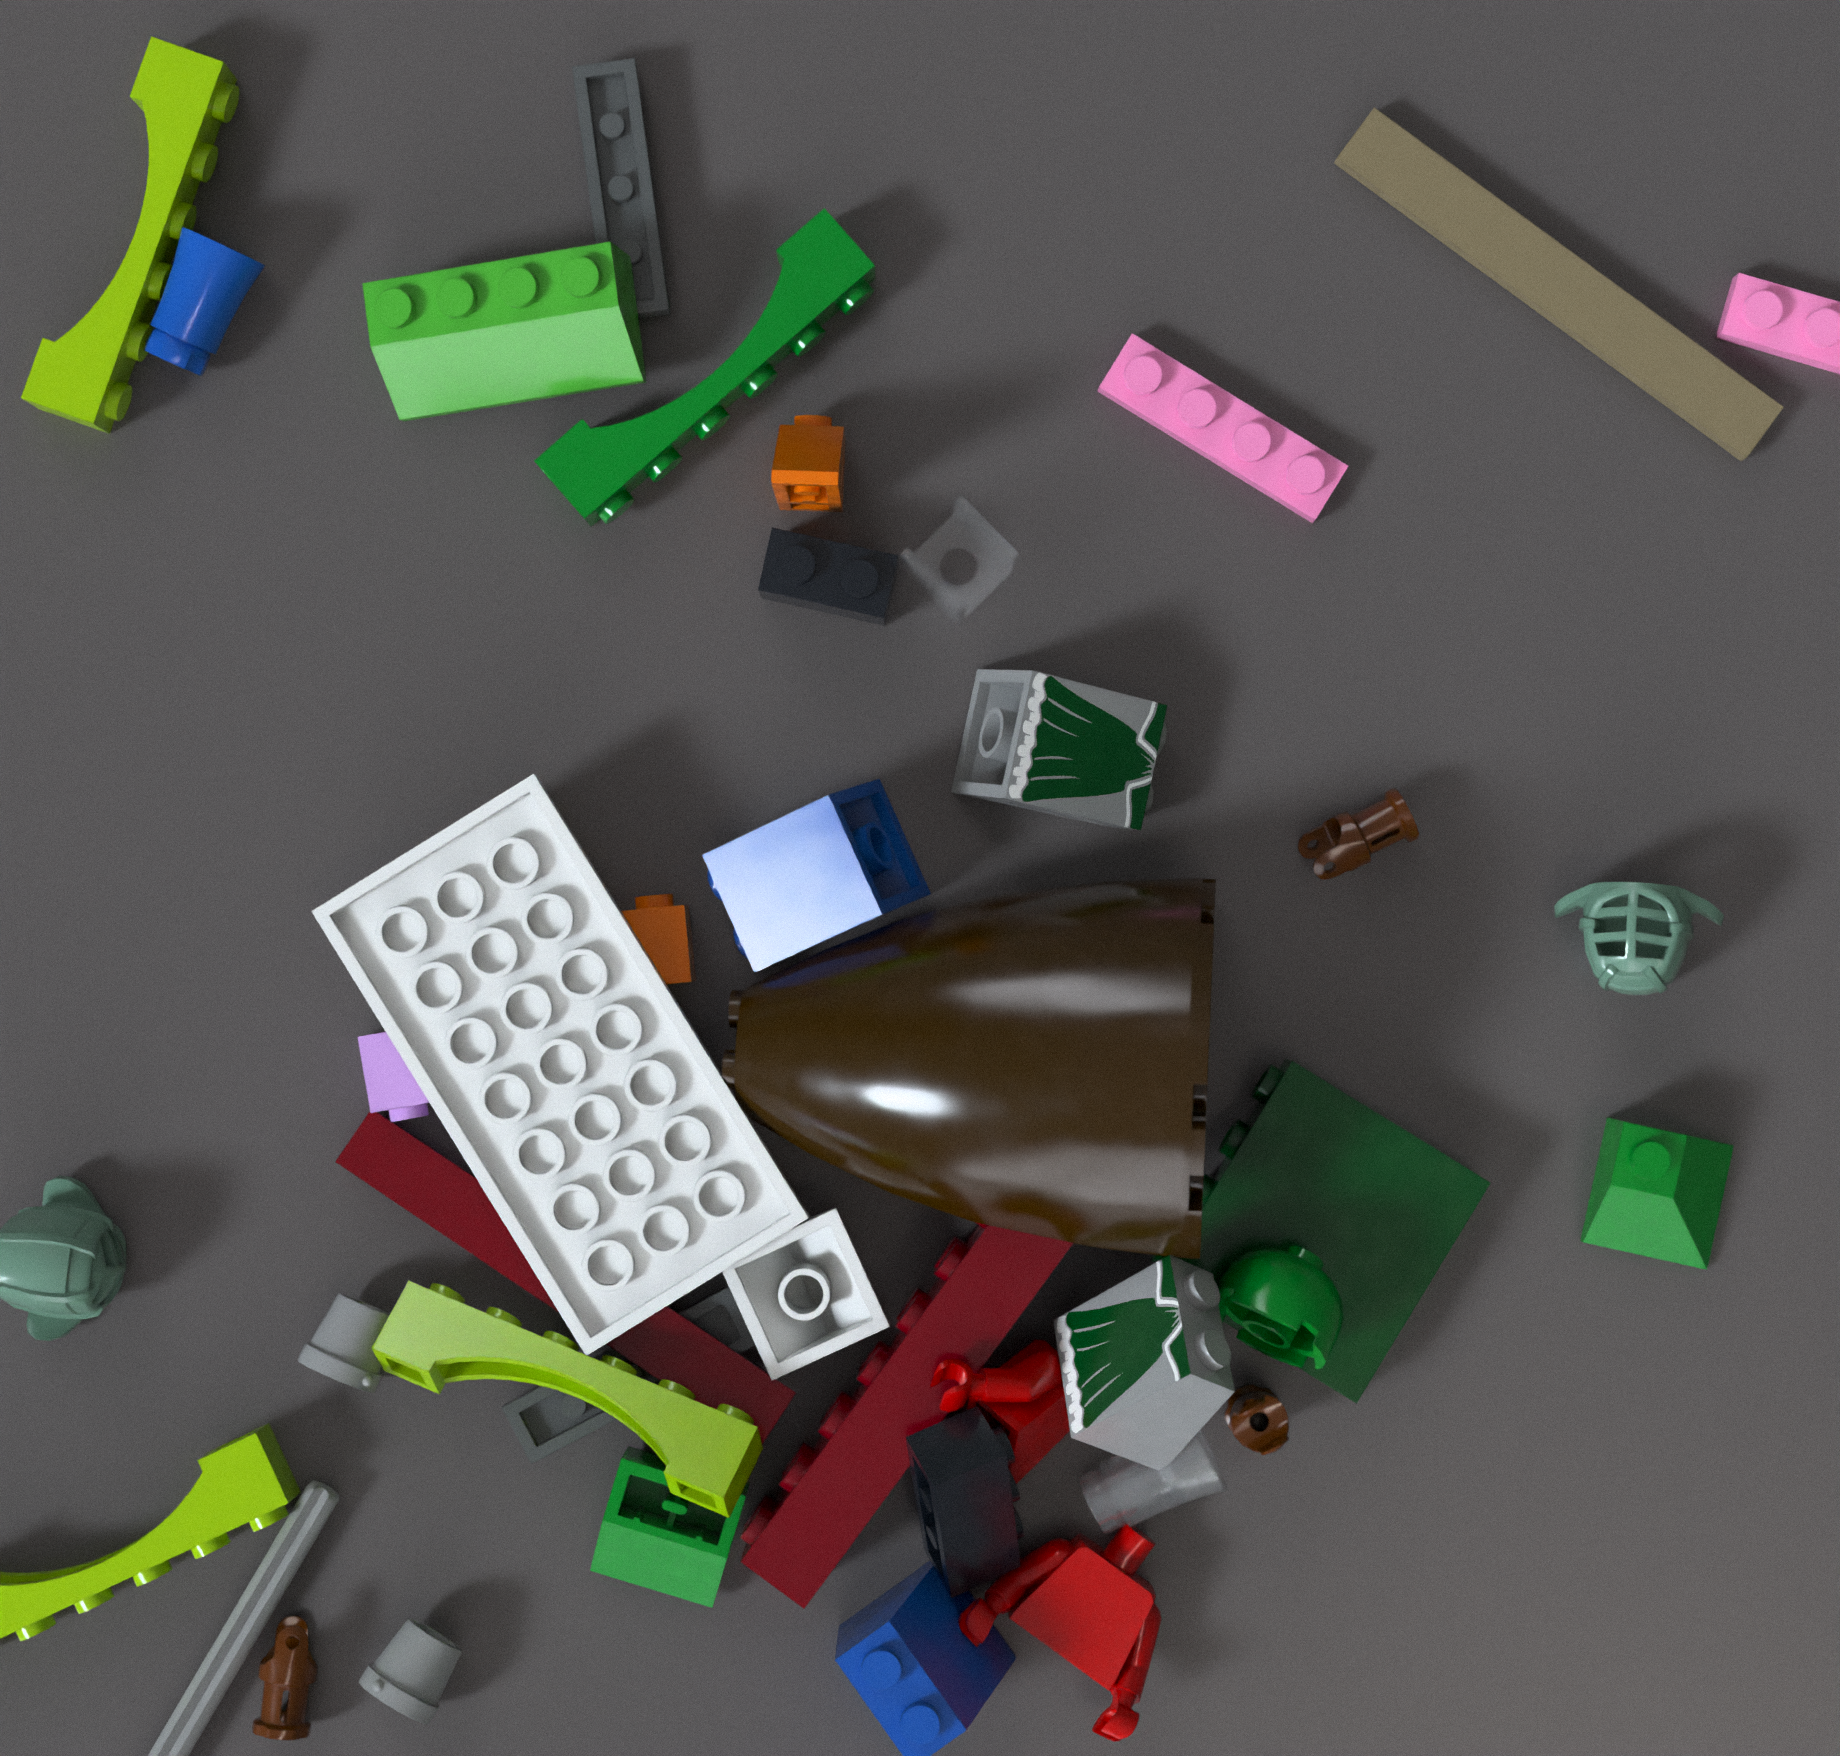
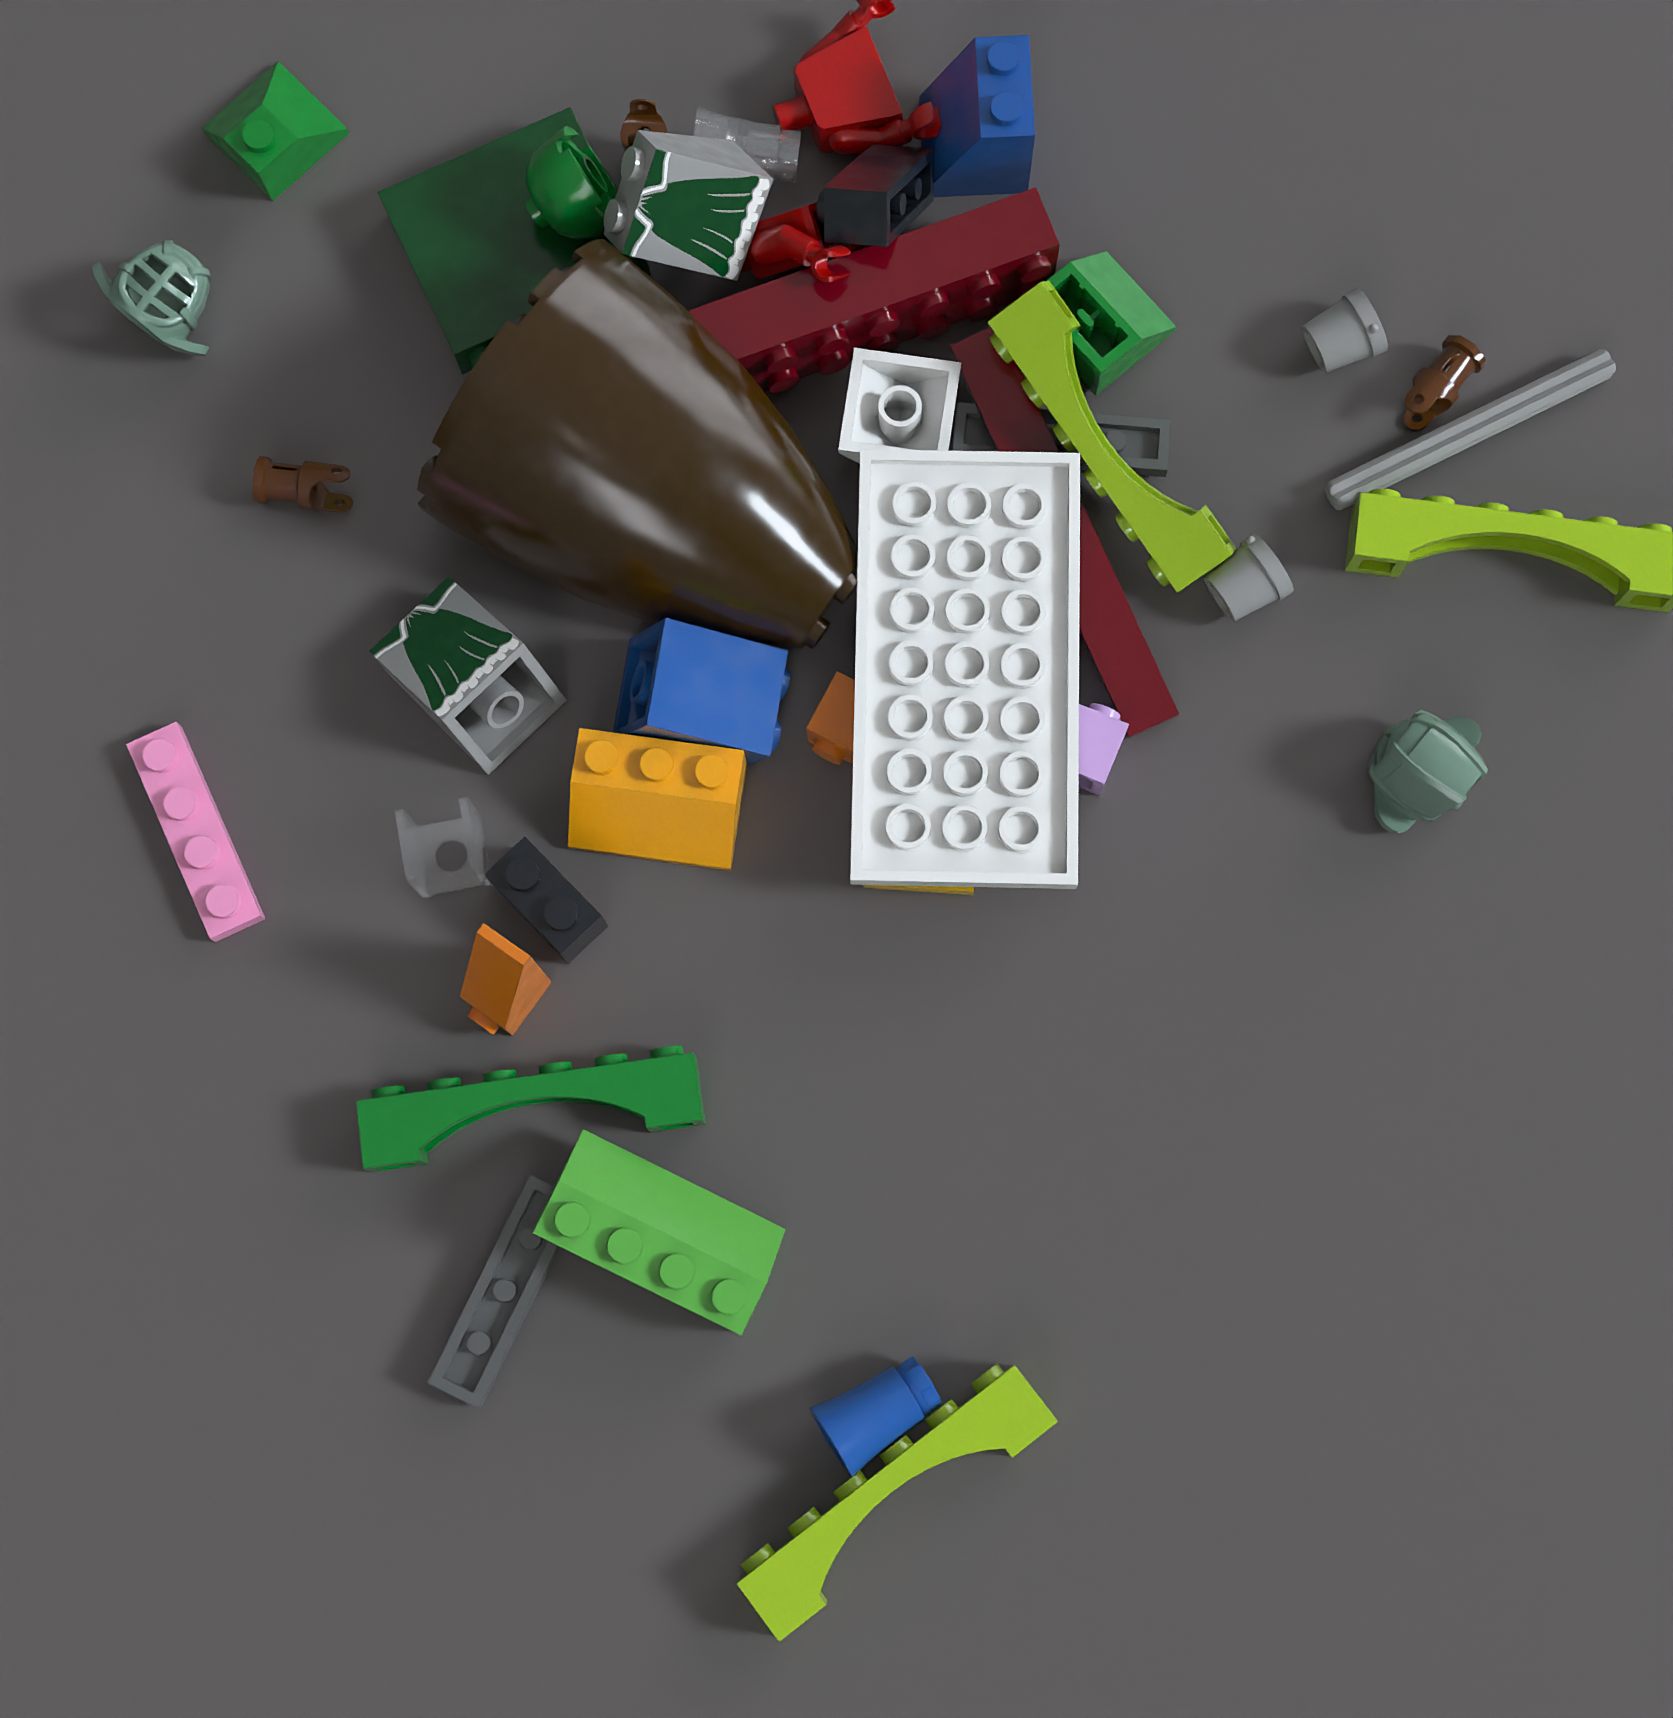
camera: 140 degrees left, 10 degrees down
(790, 744) = (655, 799): none -> light orange slope

